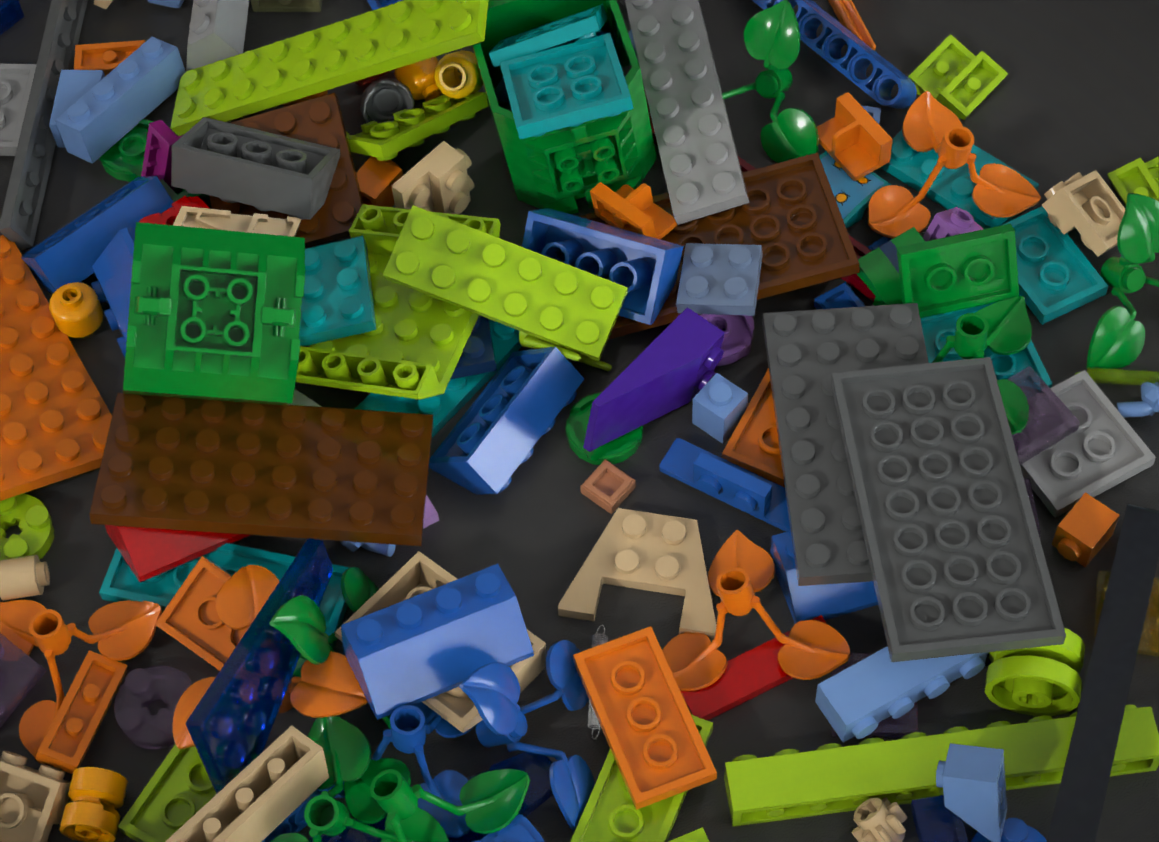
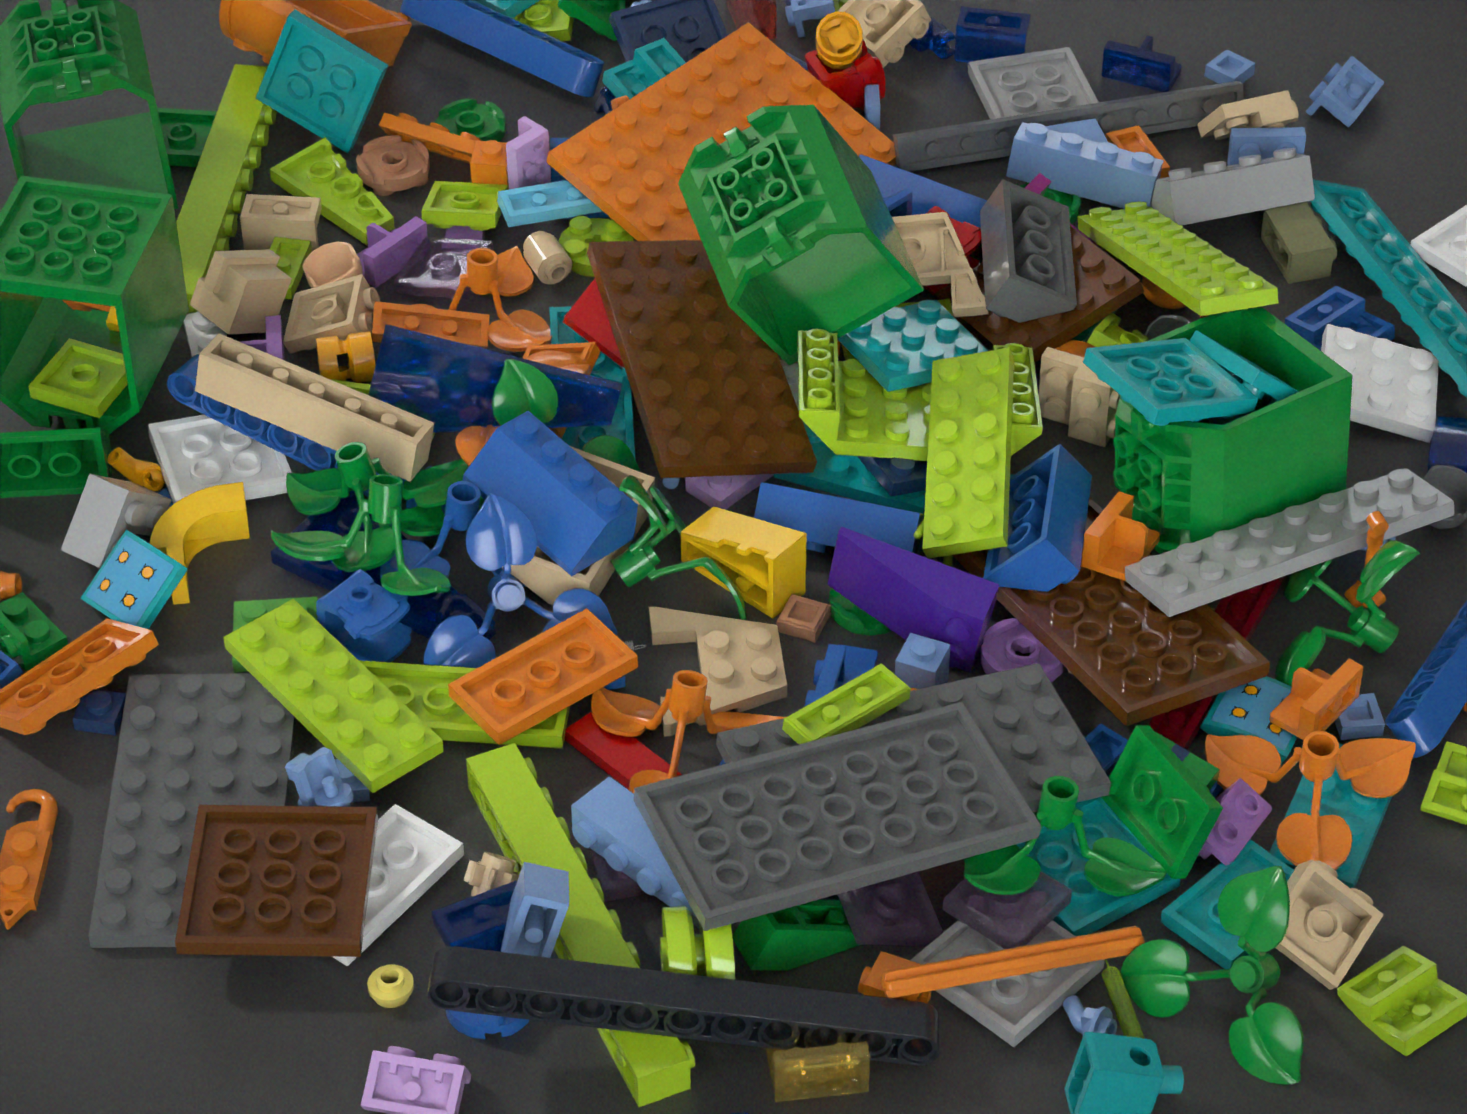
camera: 70 degrees right, 15 degrees down
(512, 554) = (641, 558): none -> green plant
(532, 505) = (757, 555): none -> yellow wedge
(720, 279) = (1060, 615): sand blue plate -> none
(726, 73) = (1374, 540): none -> orange piece
(805, 465) = (848, 706): none -> lime tile
(1095, 434) = (1010, 962): none -> orange axle

